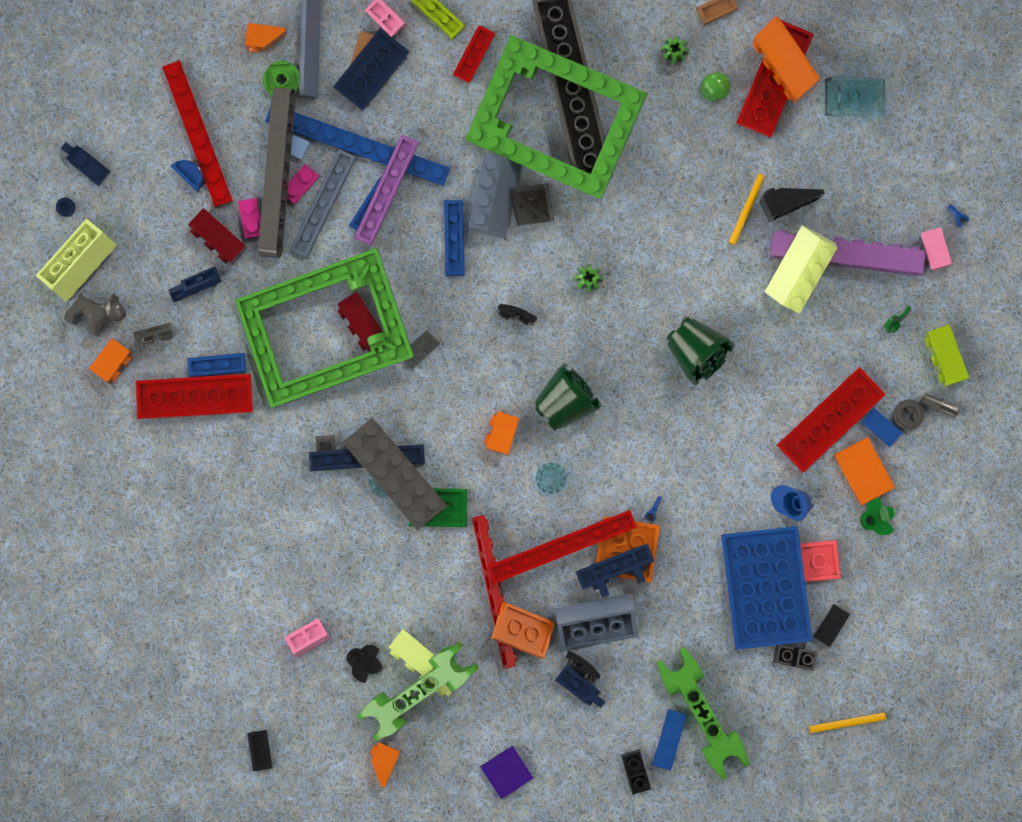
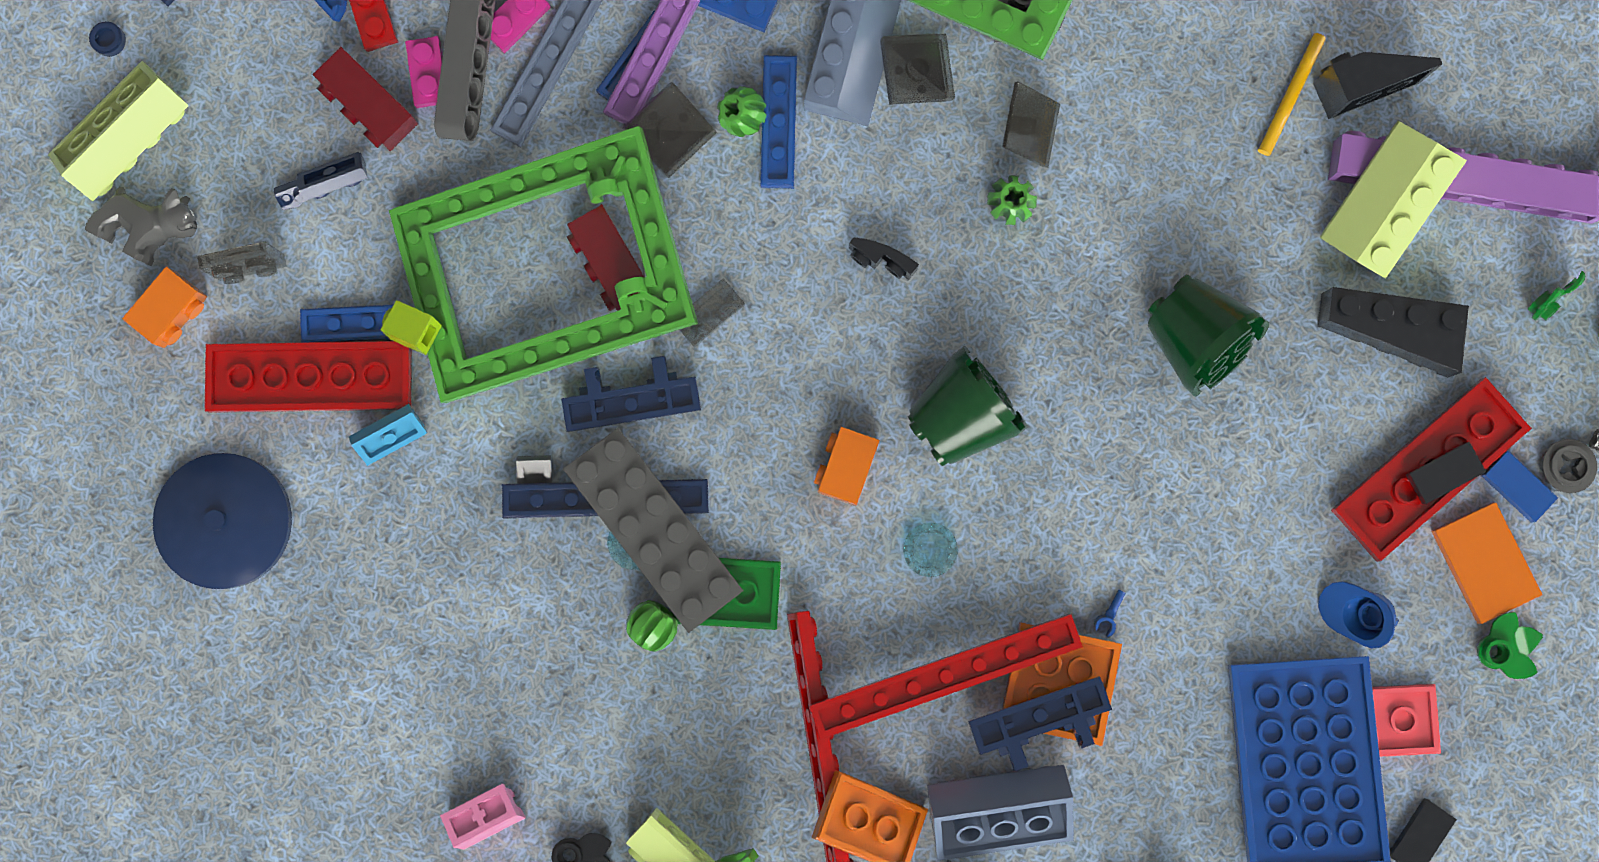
camera: 10 degrees right, 0 degrees up
(149, 480) = (222, 521): none -> dark blue dish
(241, 427) = (387, 434): none -> dark azure plate
(252, 366) = (410, 327): none -> lime brick
(392, 400) = (605, 407): none -> dark blue hinge
(393, 245) = (671, 129): none -> clear smoke tile
(396, 527) = (651, 625): none -> bright green piece
(433, 234) = (741, 111): none -> bright green piece
(598, 234) = (1031, 124): none -> clear smoke piece
(811, 340) = (1407, 327): none -> black wedge
(837, 421) = (1445, 473): none -> black tile

